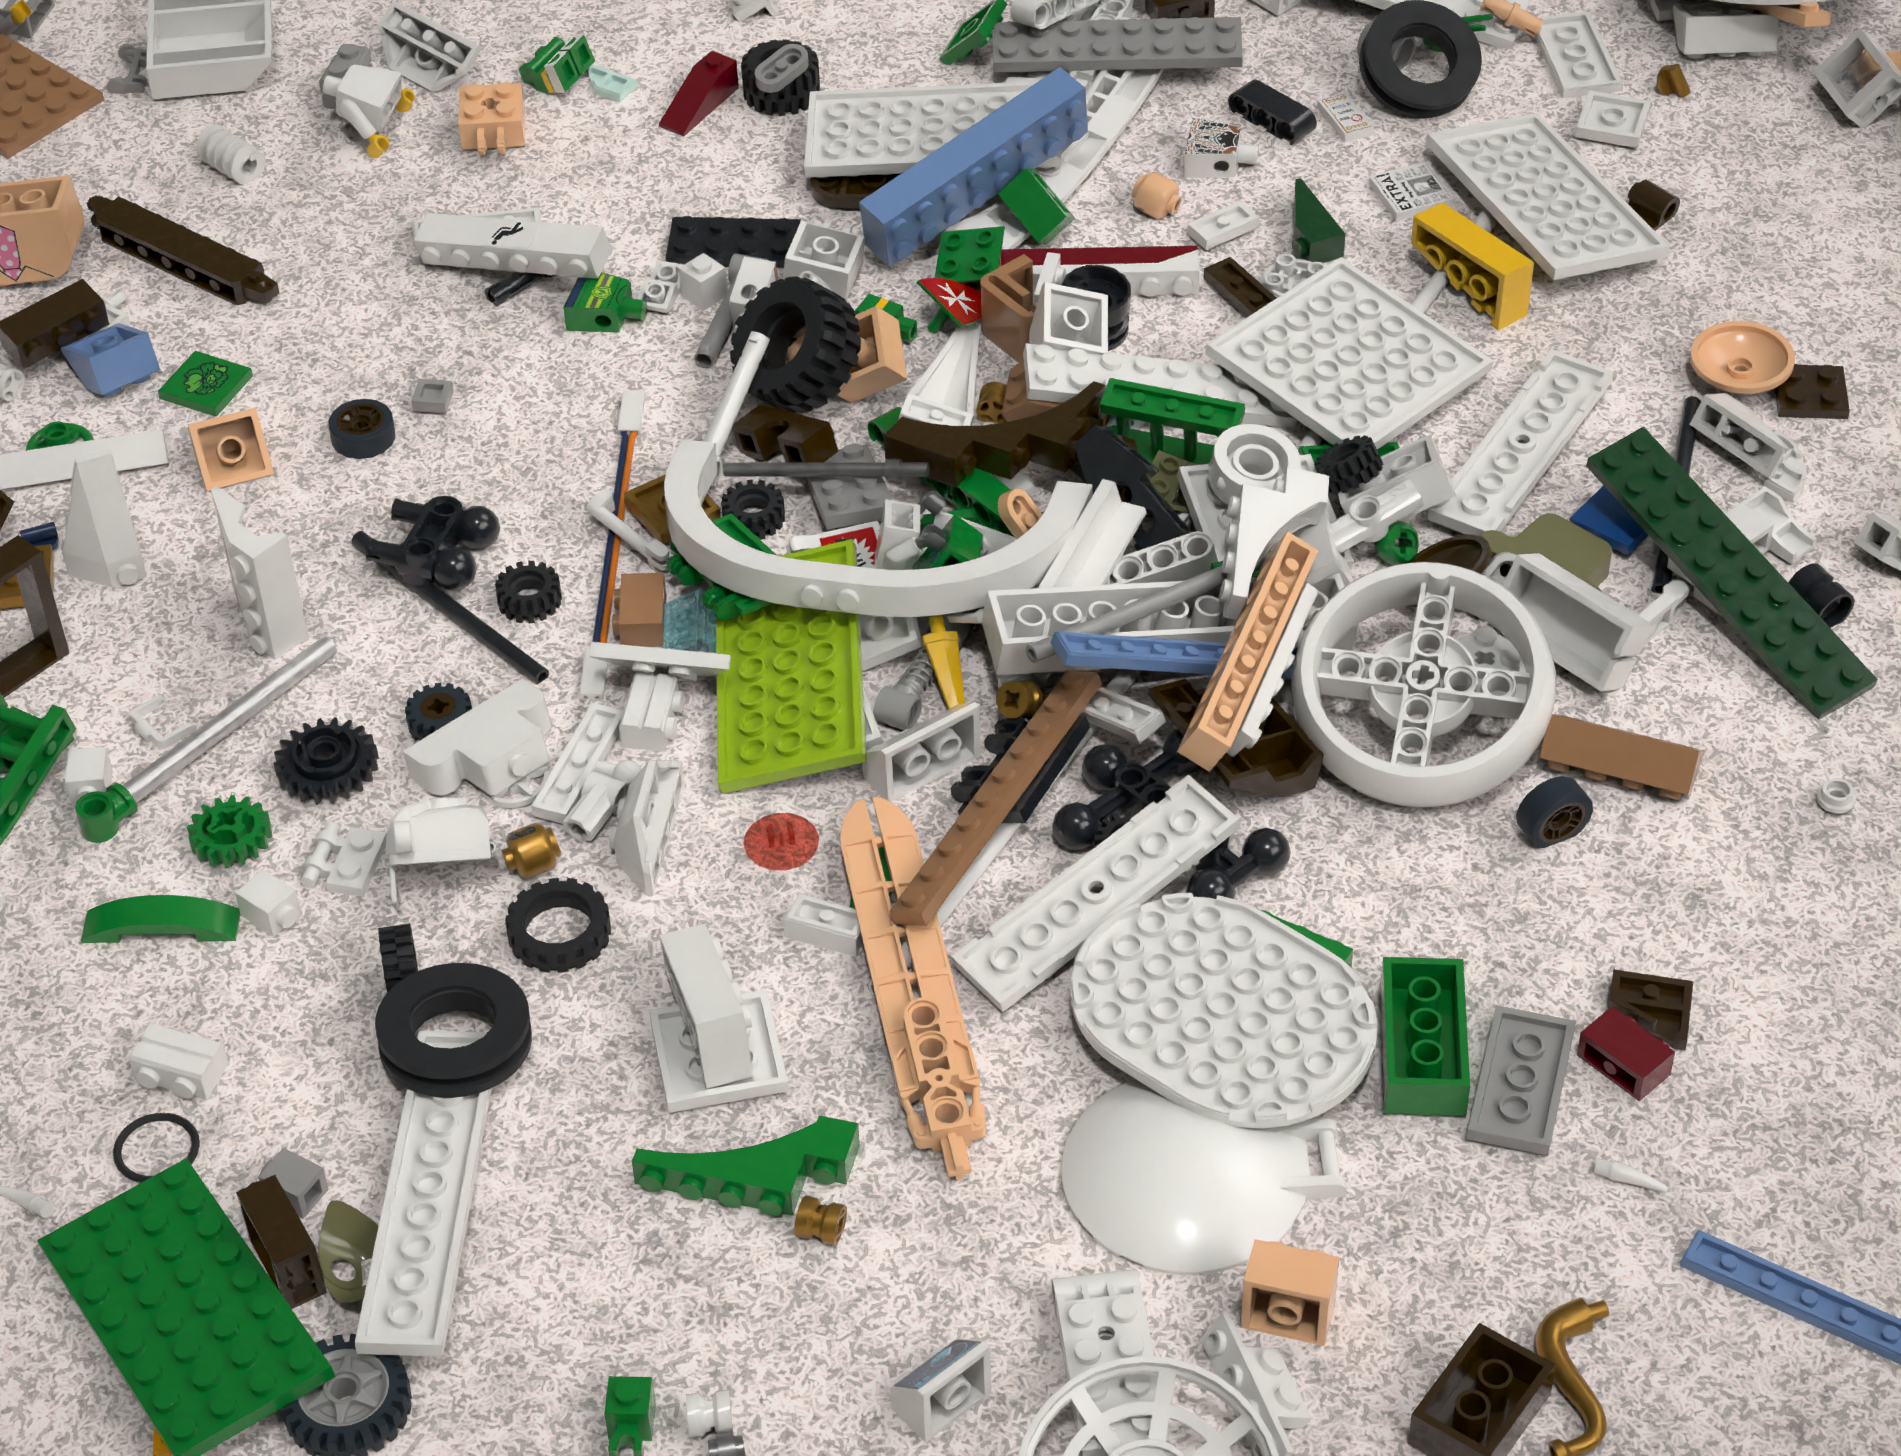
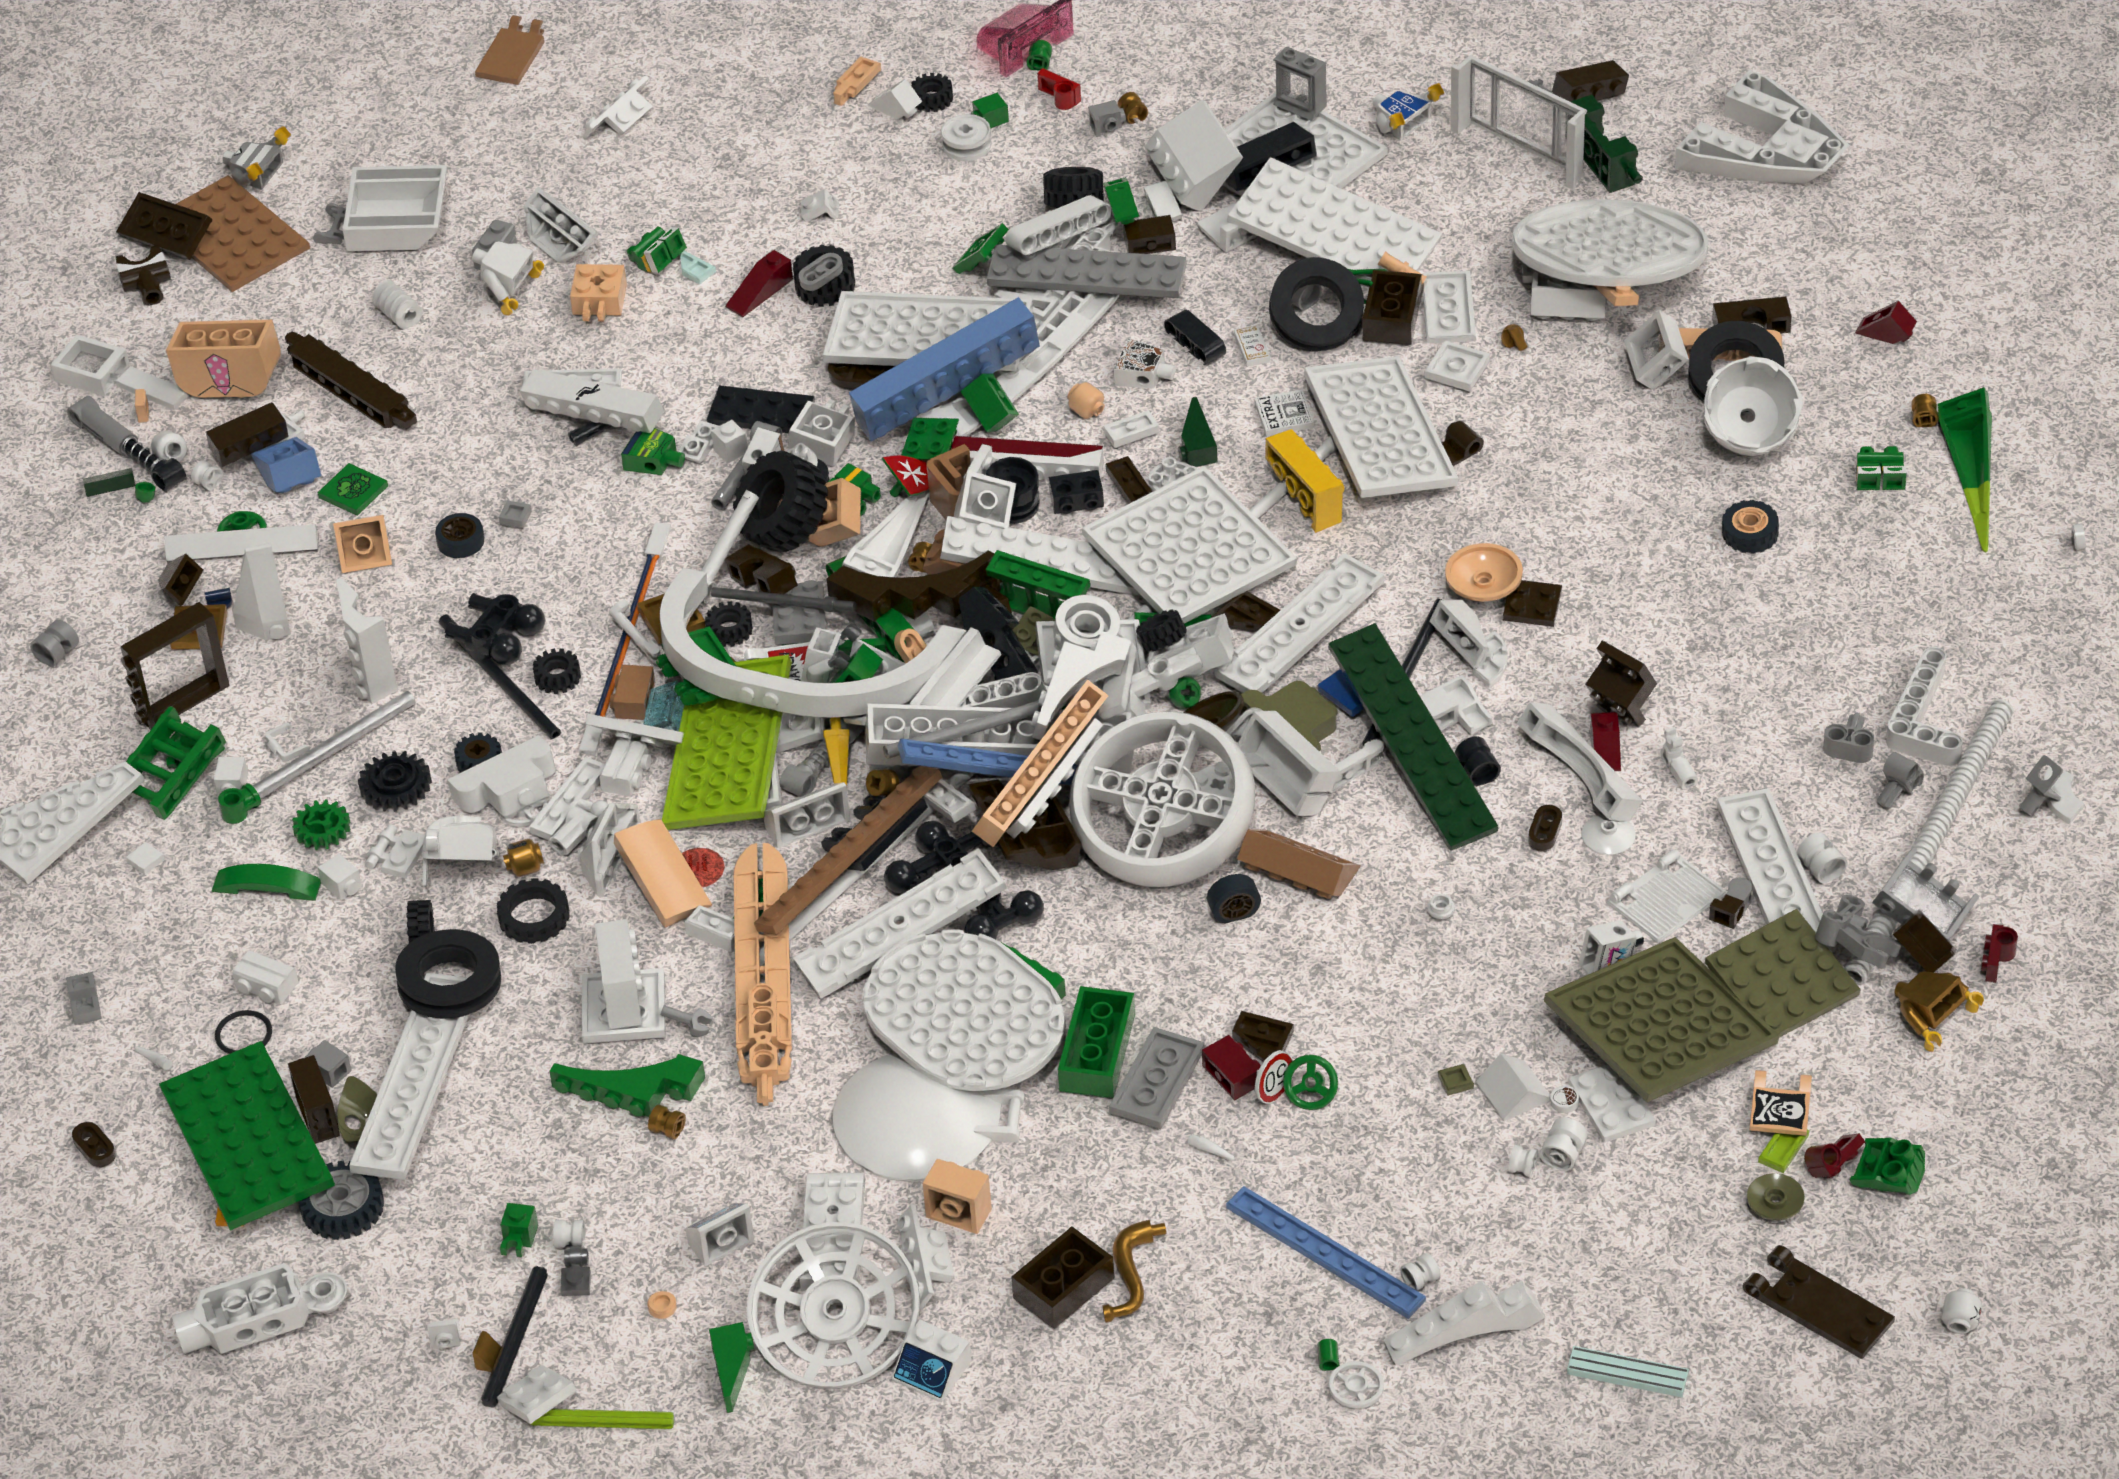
camera: 10 degrees right, 0 degrees up
(734, 851) = (660, 871): none -> light nougat slope
(823, 1062) = (690, 1019): none -> light grey bar
(1175, 305) = (1076, 492): none -> black brick
(1451, 433) = (1247, 612): none -> dark brown wing
(1512, 57) = (1392, 307): none -> dark brown brick
(1695, 1061) = (1270, 1077): none -> piece
(1747, 1033) = (1328, 1094): none -> green piece

